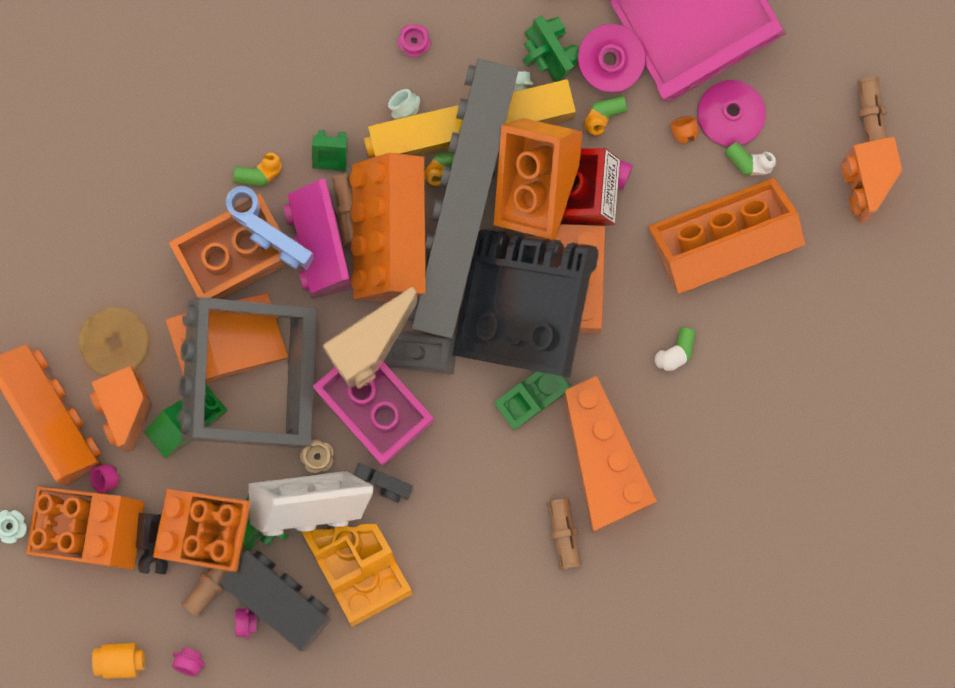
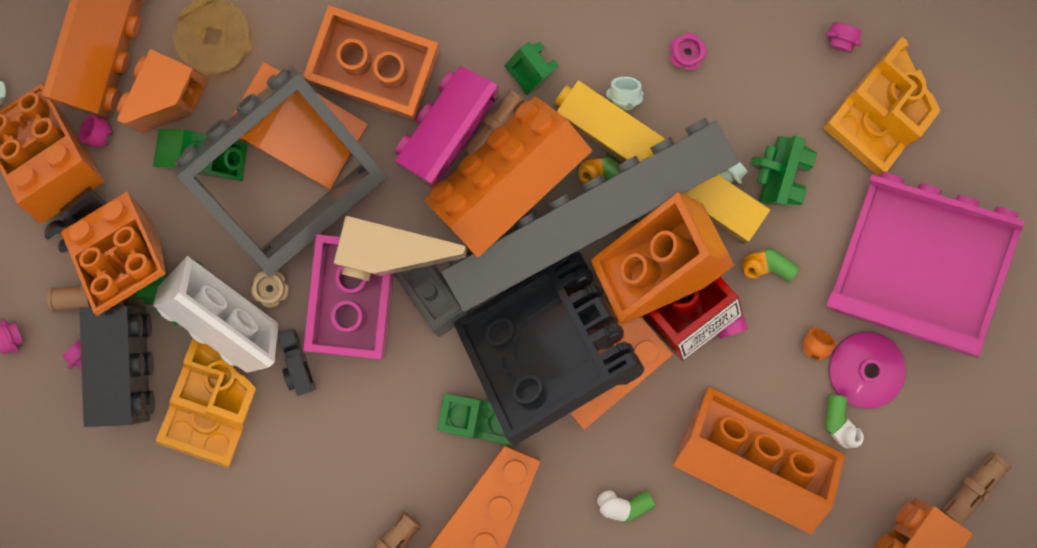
camera: 50 degrees right, 5 degrees up
(261, 174) = (459, 28): arm -> none
(265, 234) = (404, 77): light blue plate -> none
(625, 48) = (836, 242): dark pink dish -> none

